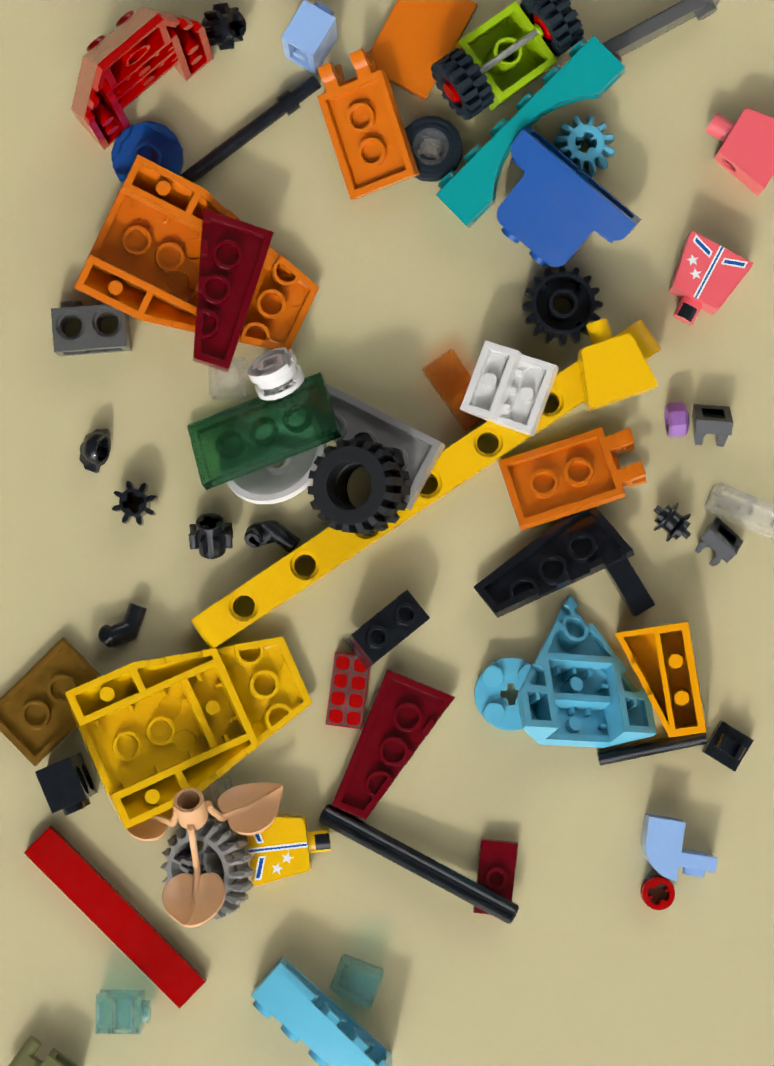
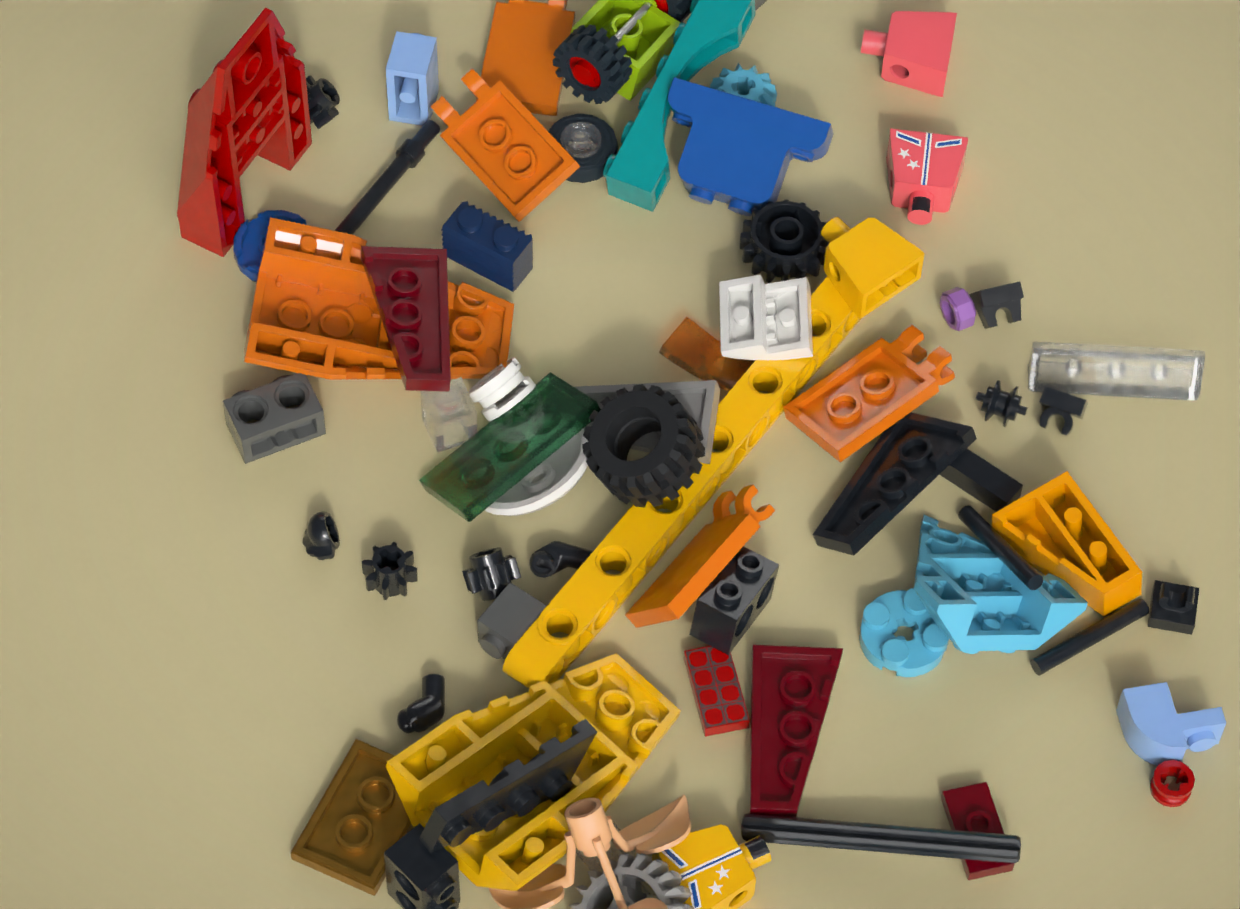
camera: 20 degrees left, 30 degrees down
(152, 752) = (511, 792): none -> black wing
(209, 584) = (507, 620): none -> dark grey brick
(316, 225) = (488, 246): none -> dark blue brick
(372, 588) = (701, 559): none -> orange tile
(612, 656) = (1000, 547): none -> black bar

